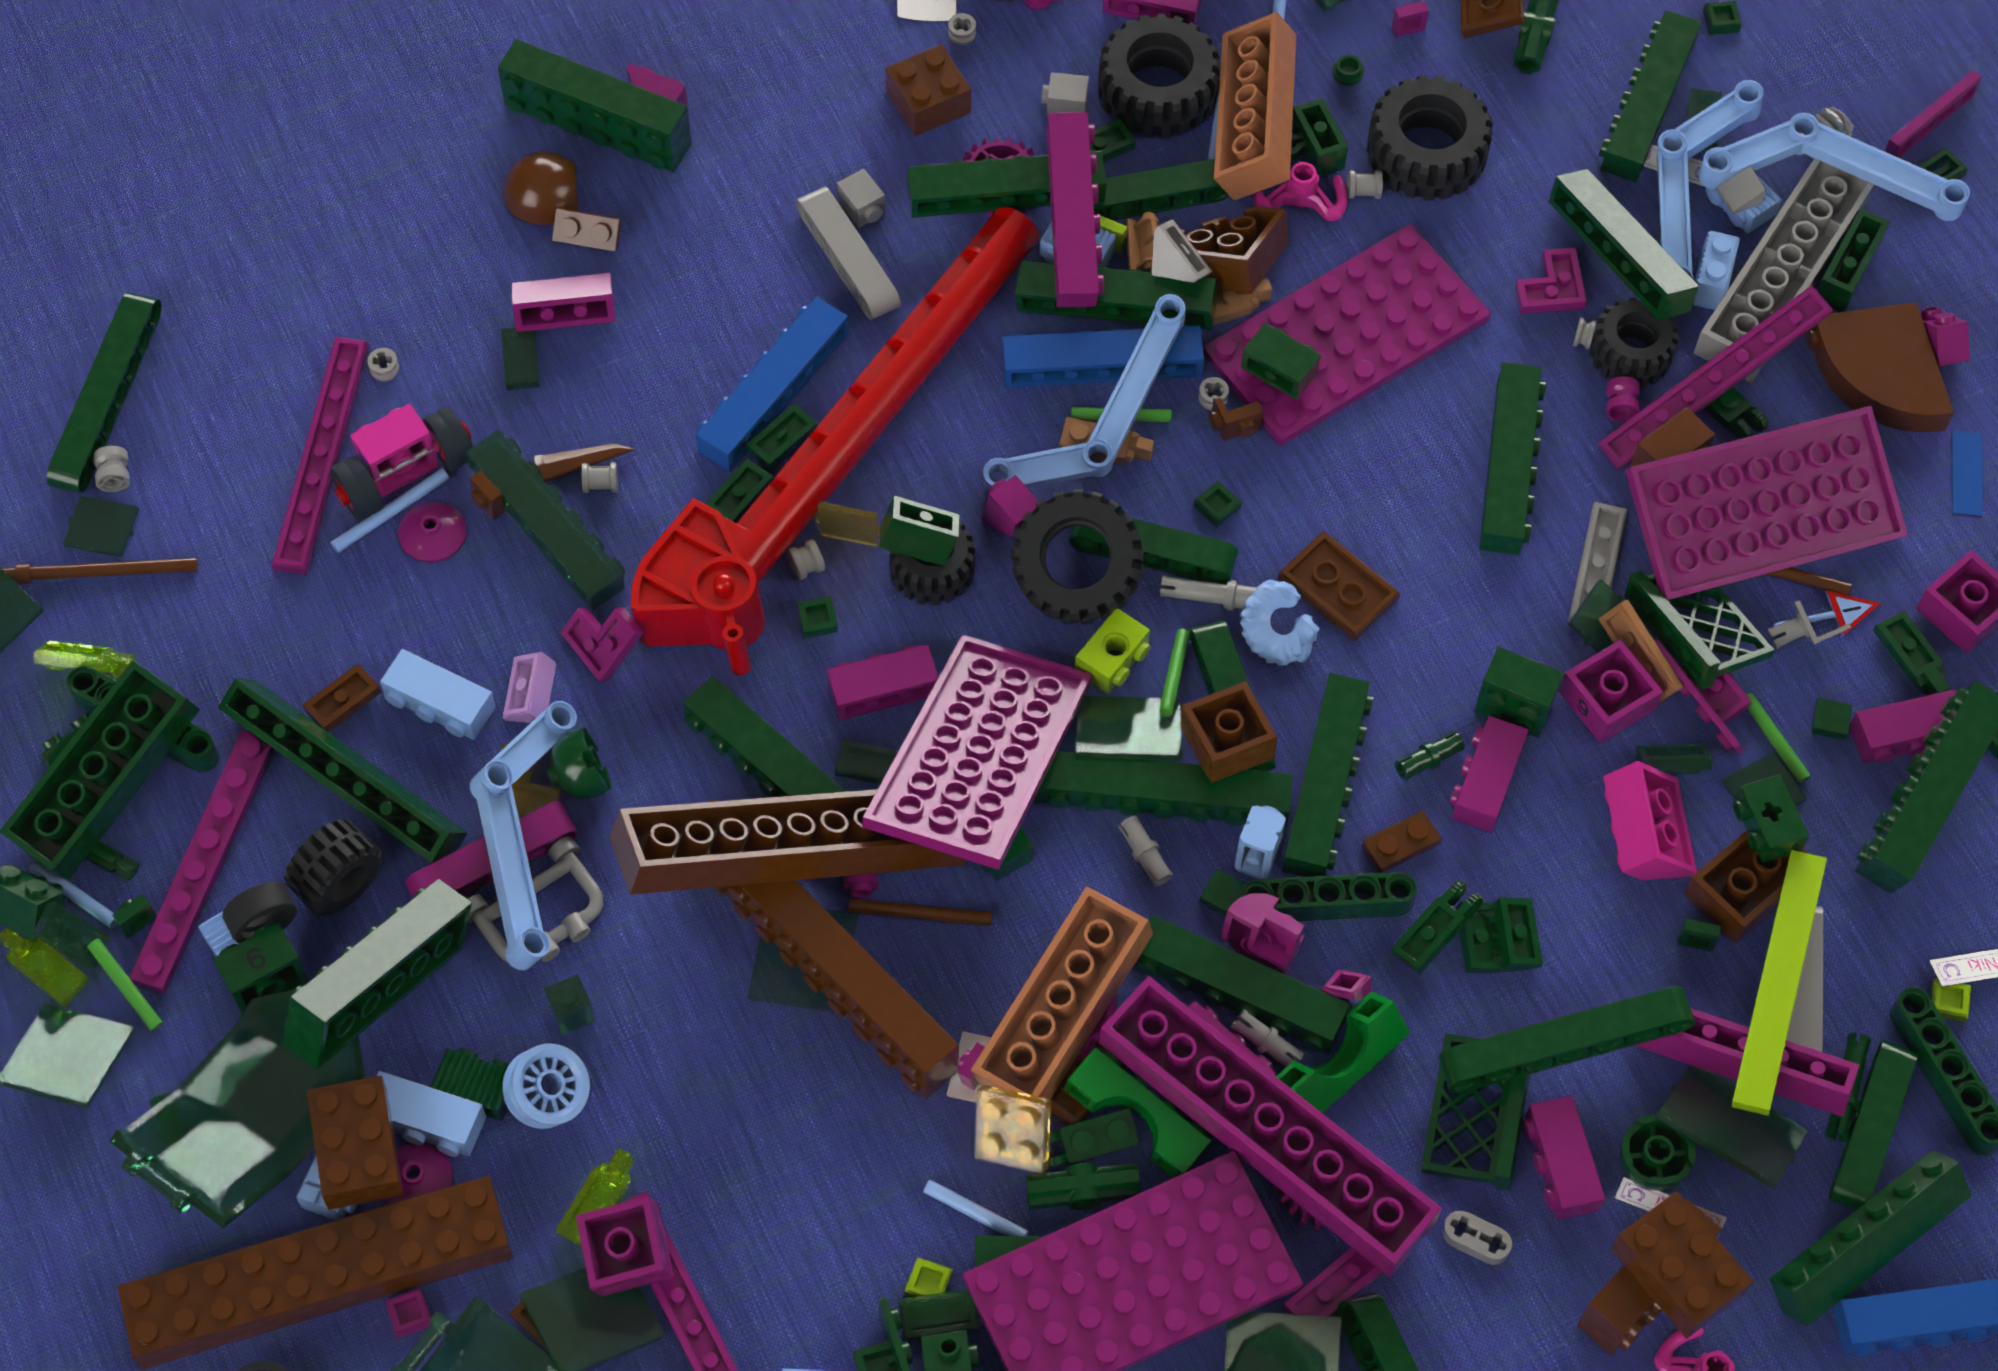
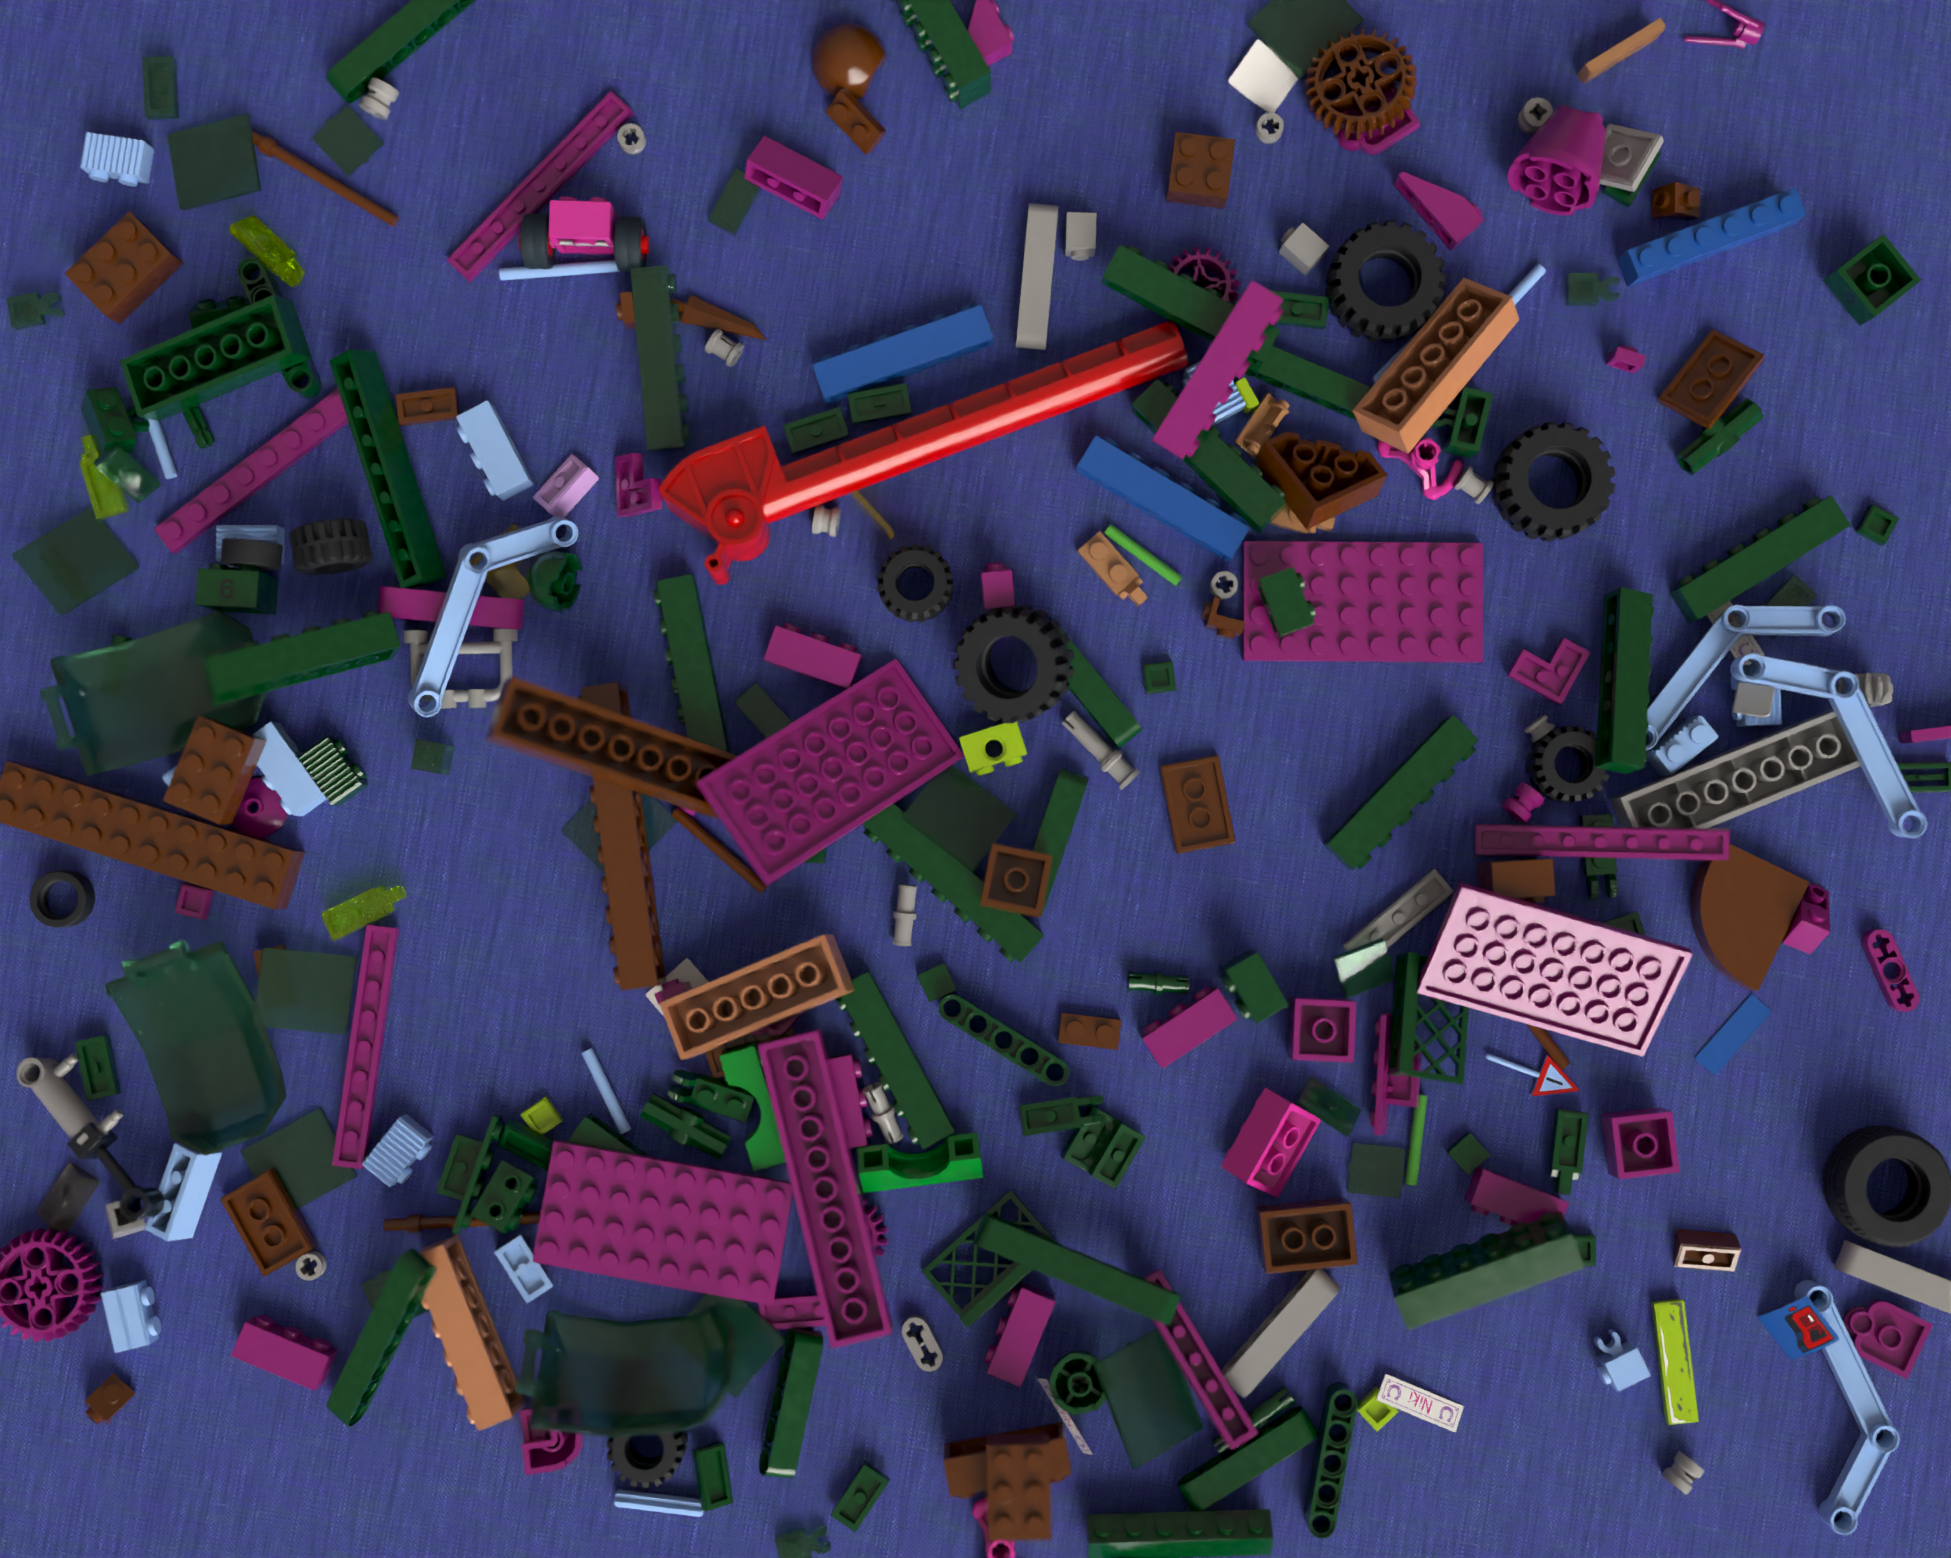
camera: 40 degrees right, 25 degrees up
(125, 985) = (147, 532): bright green bar -> none
(134, 915) = (183, 483): dark green plate -> none
(434, 543) = (586, 320): magenta dish -> none
(576, 1094) = (371, 834): light blue wheel -> none
(624, 1246) = (346, 967): magenta brick -> none
(817, 617) = (803, 572): dark green plate -> none
(919, 531) = (906, 569): dark green brick -> none
(1012, 1129) = (661, 1061): clear yellow plate -> none
(1117, 418) = (1125, 566): light blue piece -> none
(1174, 673) = (1025, 793): bright green bar -> none
(1175, 255) = (1268, 465): light grey slope -> none
(1260, 842) = (984, 970): light blue brick -> none
(1261, 636) = (1107, 814): light blue piece -> none
(1262, 932) = (934, 1041): magenta brick -> none
(1326, 777) = (1072, 948): dark green brick -> none
(1348, 70) = (1541, 373): dark green plate -> none
(1348, 985) = (964, 1116): magenta slope -> none
(1626, 625) = (1369, 1005): medium nougat tile -> none
(1698, 934) = (1238, 1246): dark green tile -> none
(1770, 818) = (1350, 1231): dark green brick -> none
(1779, 983) = (1254, 1335): lime tile -> none
(1800, 627) = (1503, 1074): light grey bracket -> none
(1852, 259) = (1791, 812): dark green brick -> none

